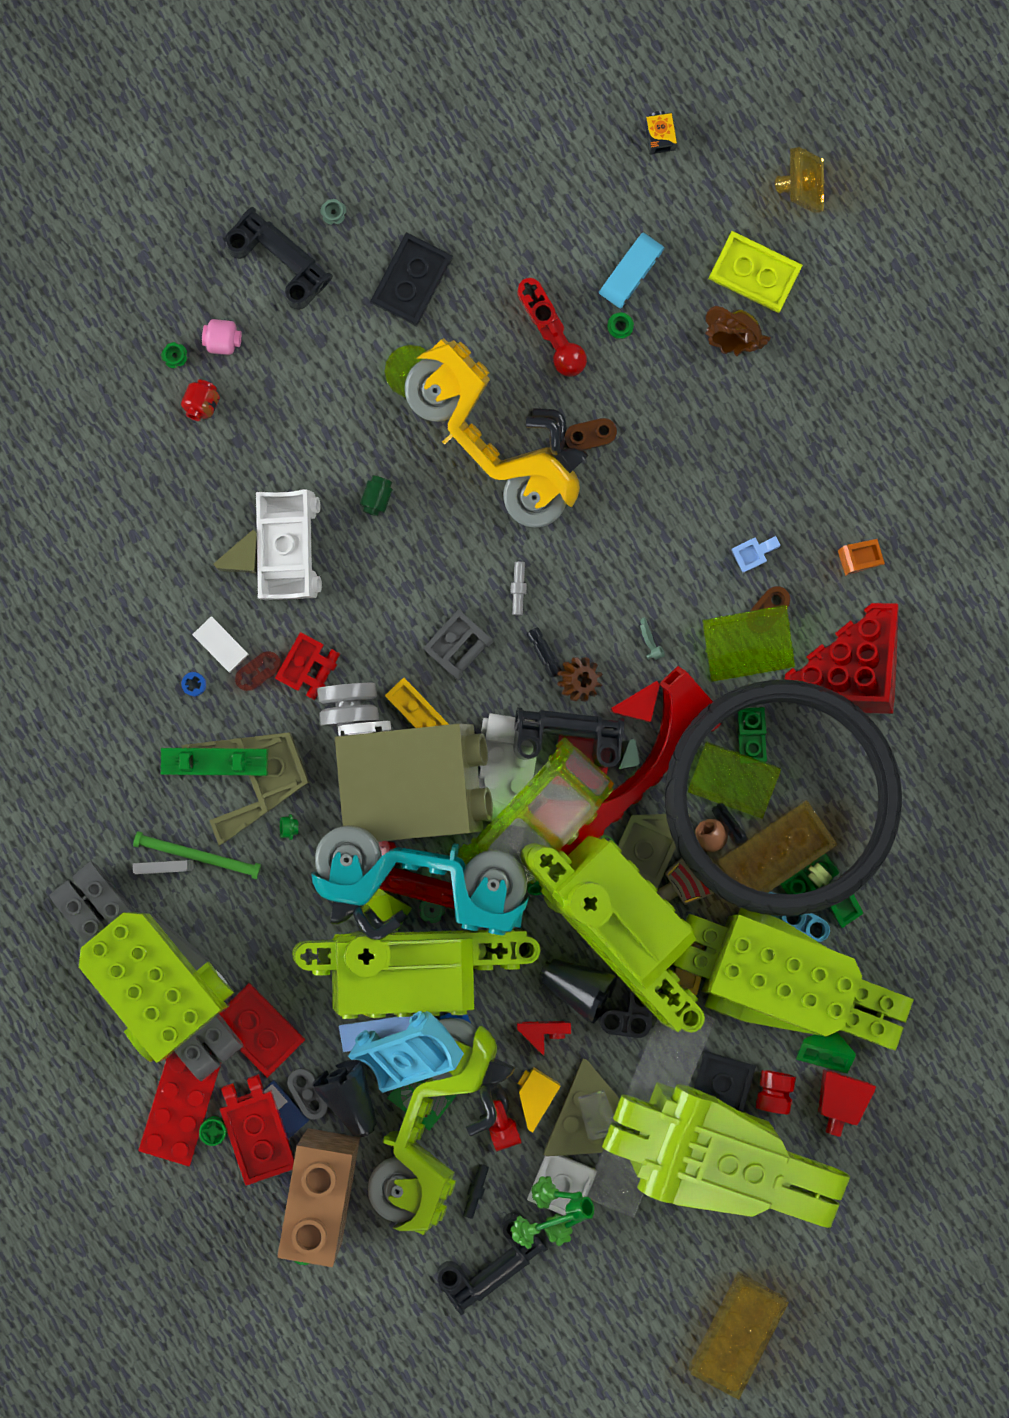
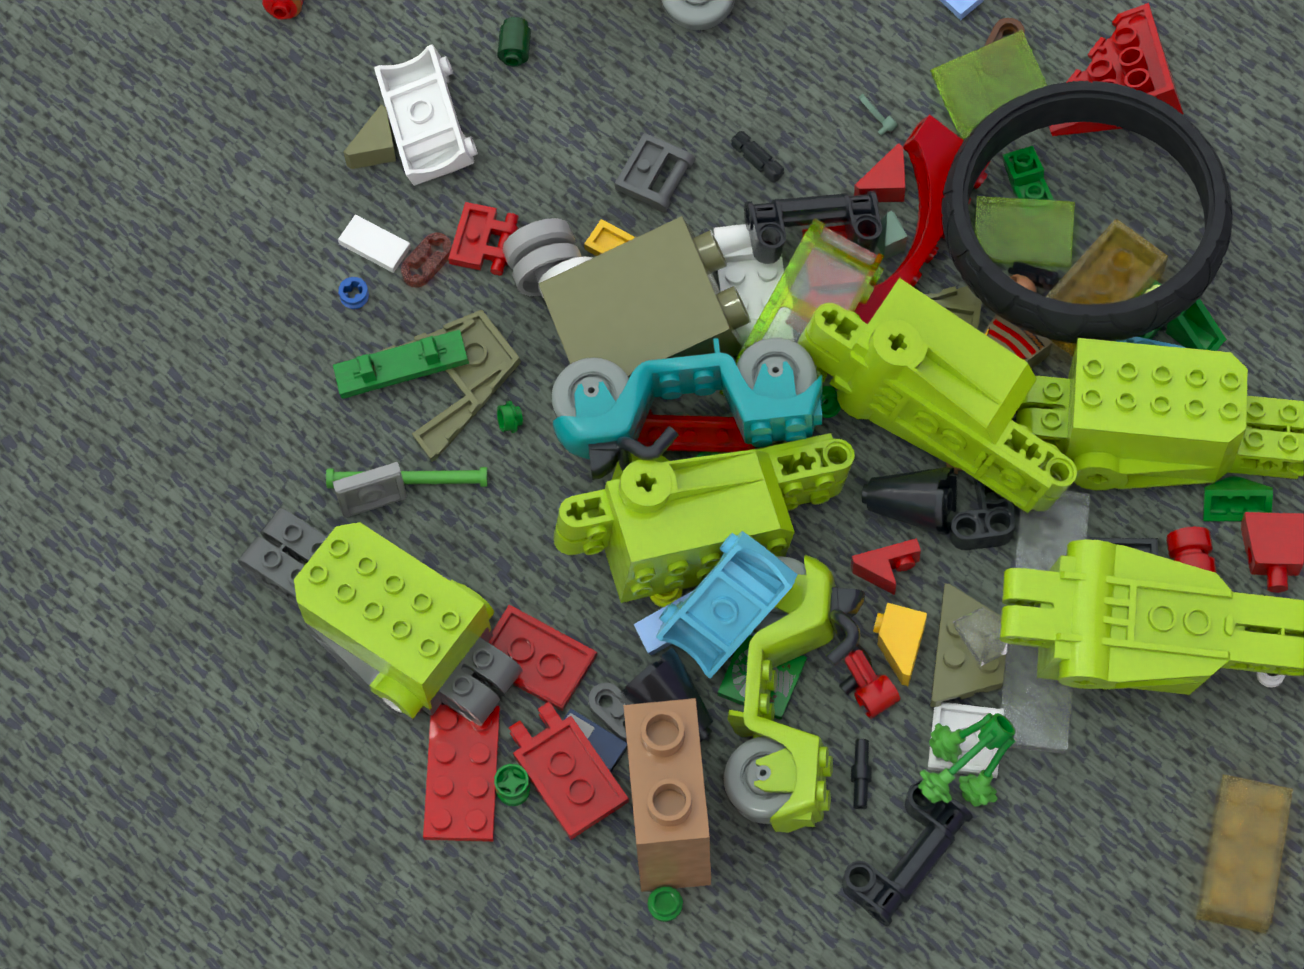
camera: 10 degrees left, 20 degrees down
(518, 588) = (707, 98): light grey bar -> none
(584, 670) = (808, 168): reddish brown gear -> none

